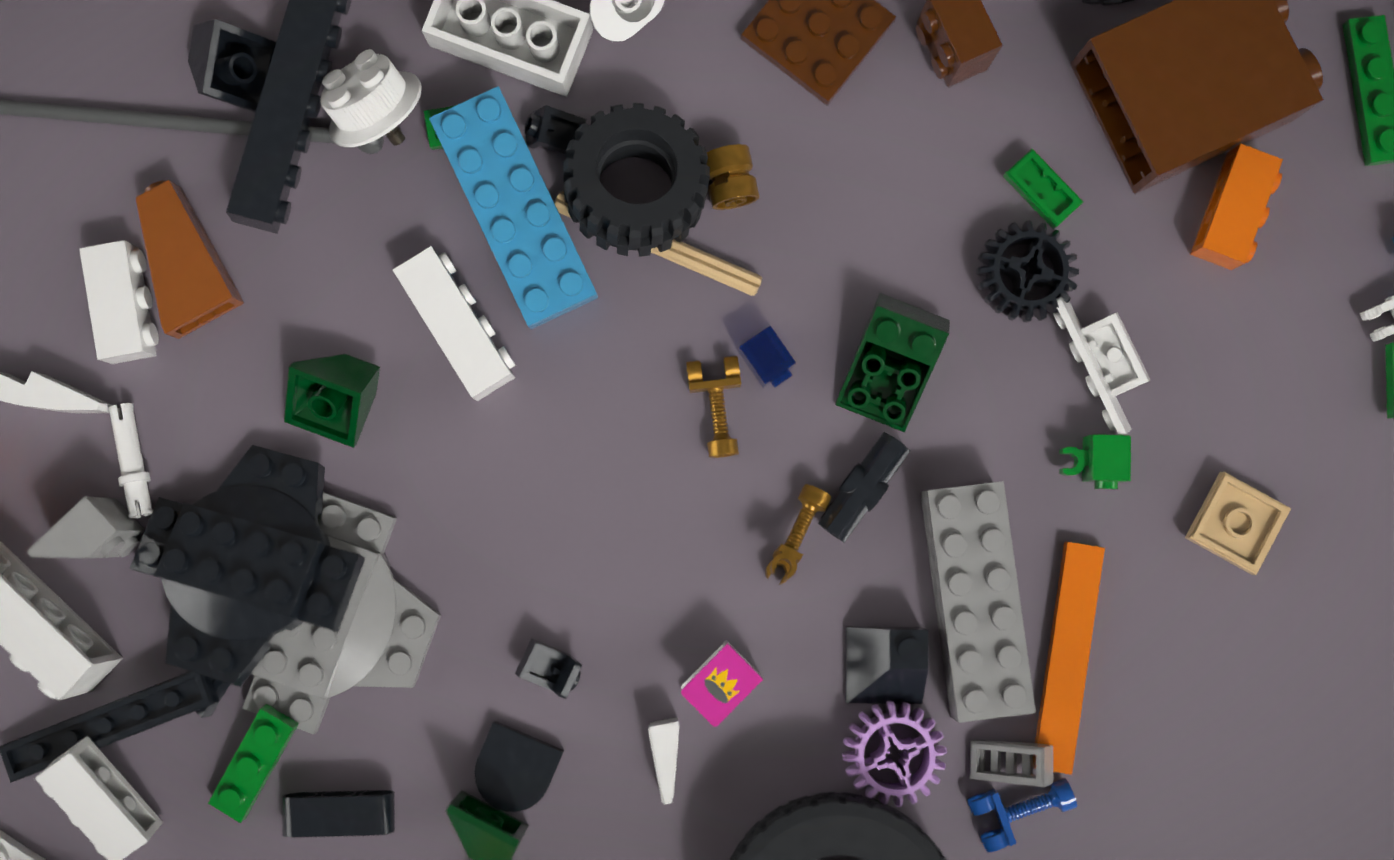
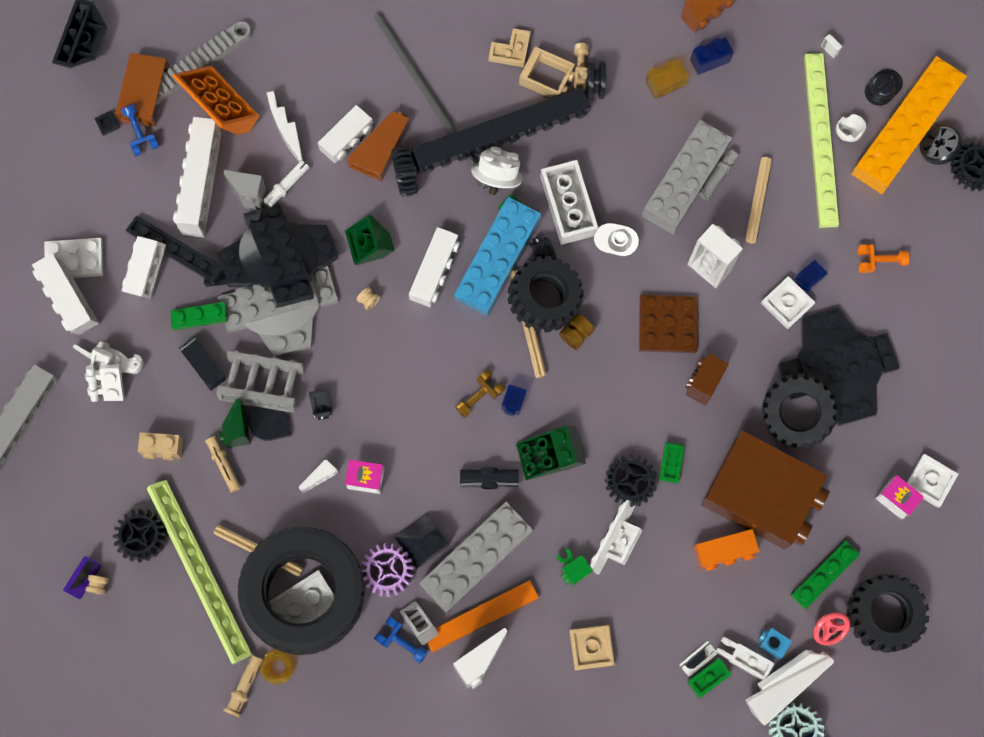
camera: 55 degrees right, 10 degrees down
(229, 63) = (472, 107): black slope -> none
(255, 252) = (404, 171): none -> black gear
(428, 467) = (368, 298): none -> tan wheel
(476, 751) = (266, 398): none -> light grey fence
(787, 555) = (436, 465): pearl gold bar -> none
(1160, 718) = (477, 662): none -> white slope
(1364, 374) = (698, 659): none -> sticker

